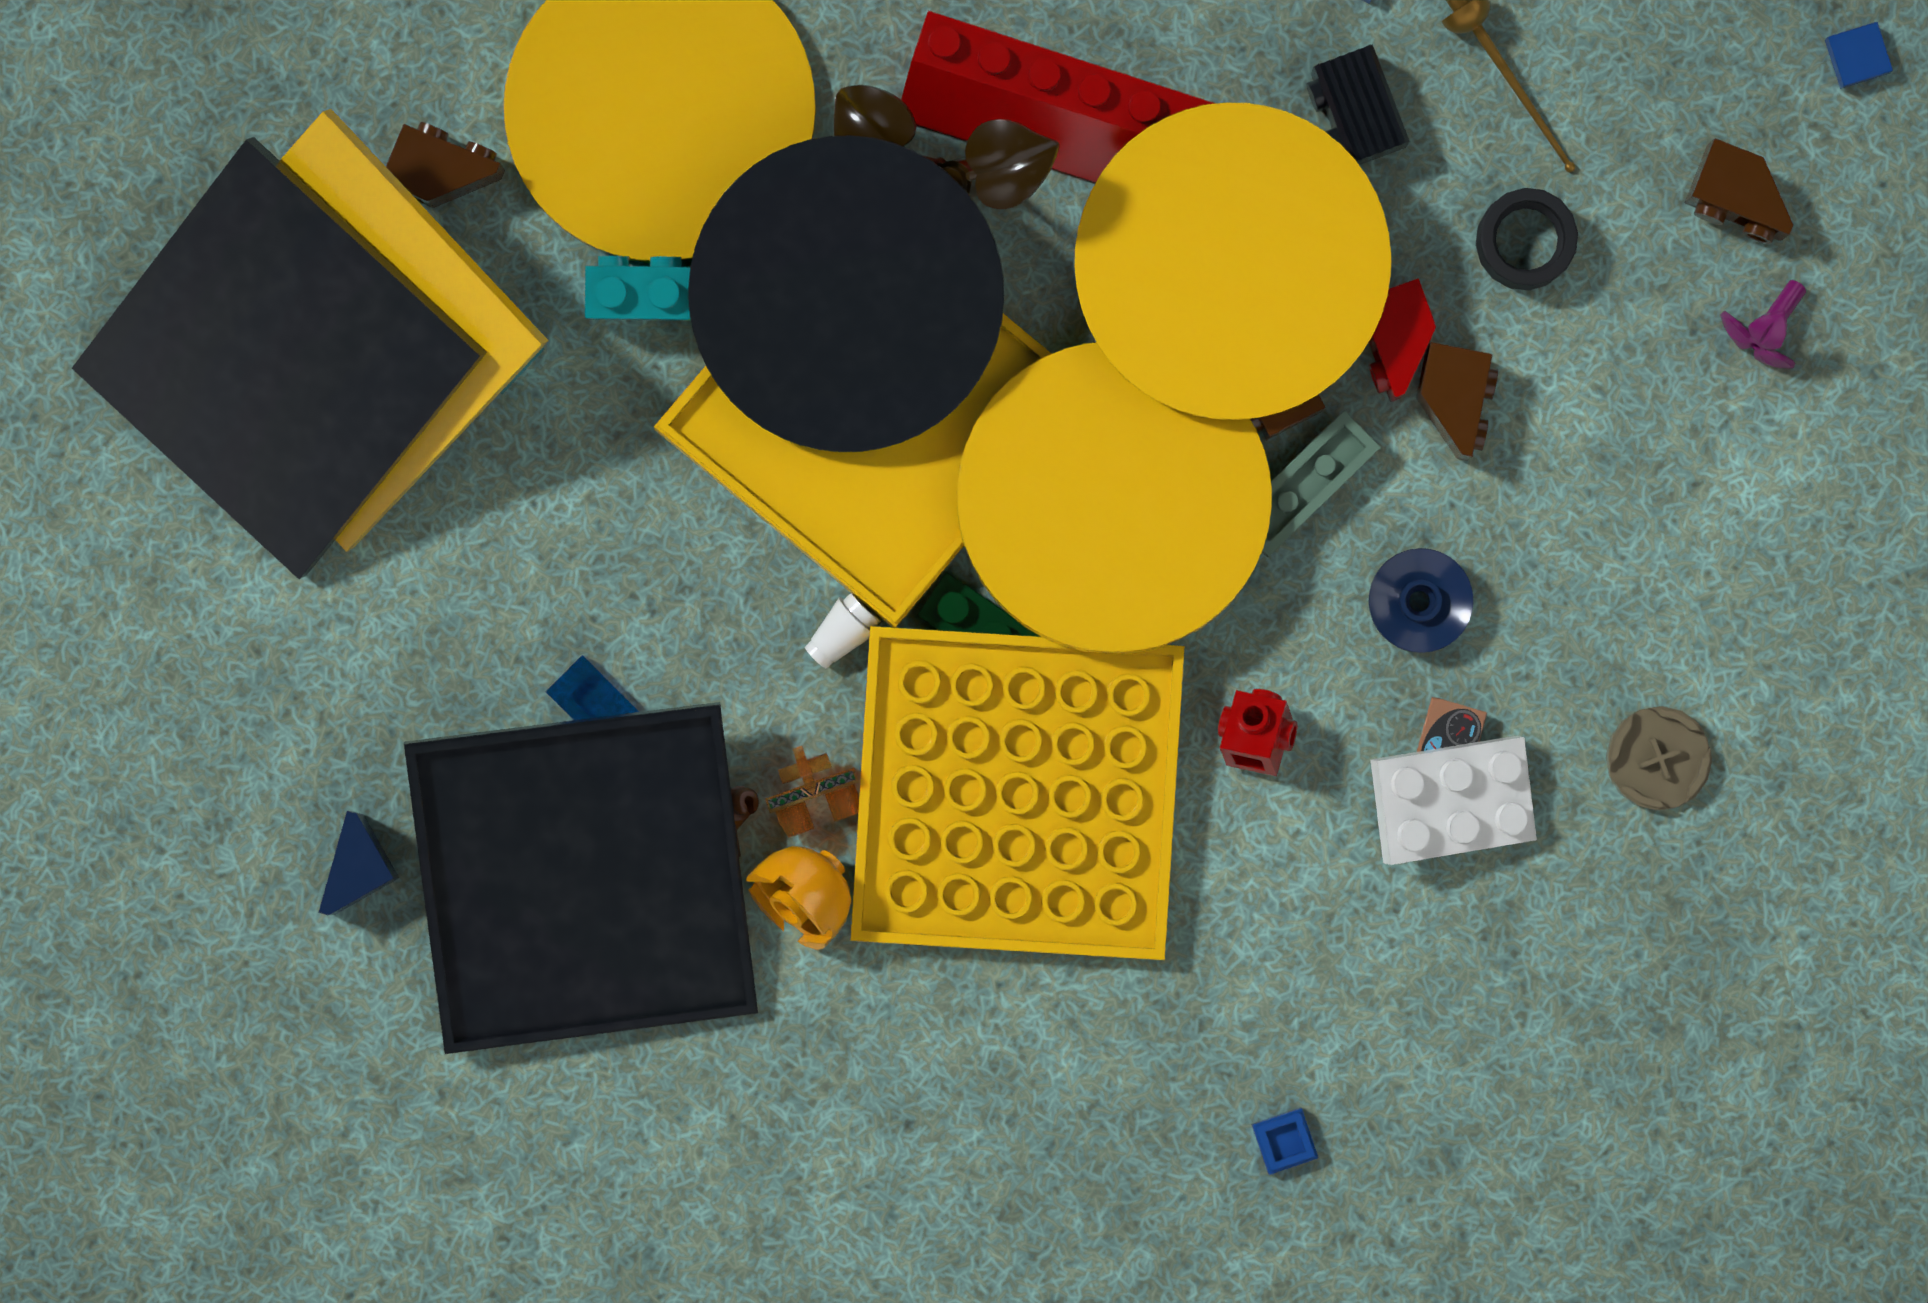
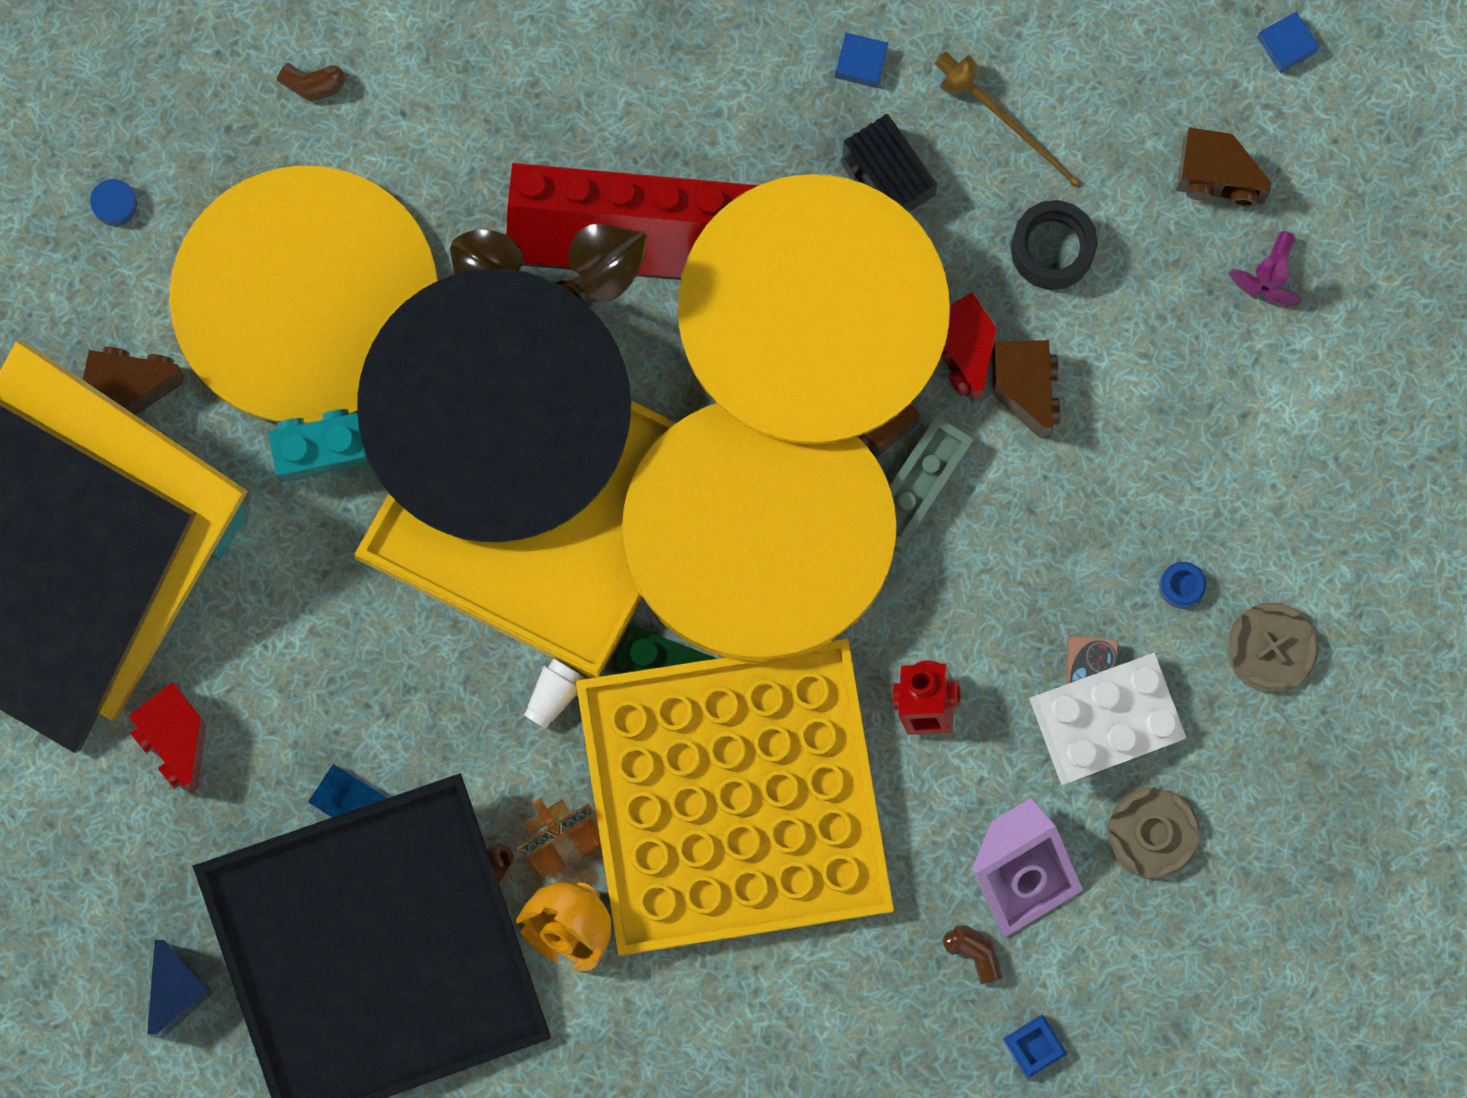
camera: 15 degrees left, 10 degrees down
(414, 584) = (175, 733): none -> red slope
(1245, 1017) = (976, 946): none -> reddish brown arm
(1319, 944) = (1024, 867): none -> lavender slope
(1448, 596) = (1045, 537): dark blue dish -> none
(1454, 930) = (1154, 846): none -> dark tan tile
(1576, 664) = (1182, 585): none -> blue tile

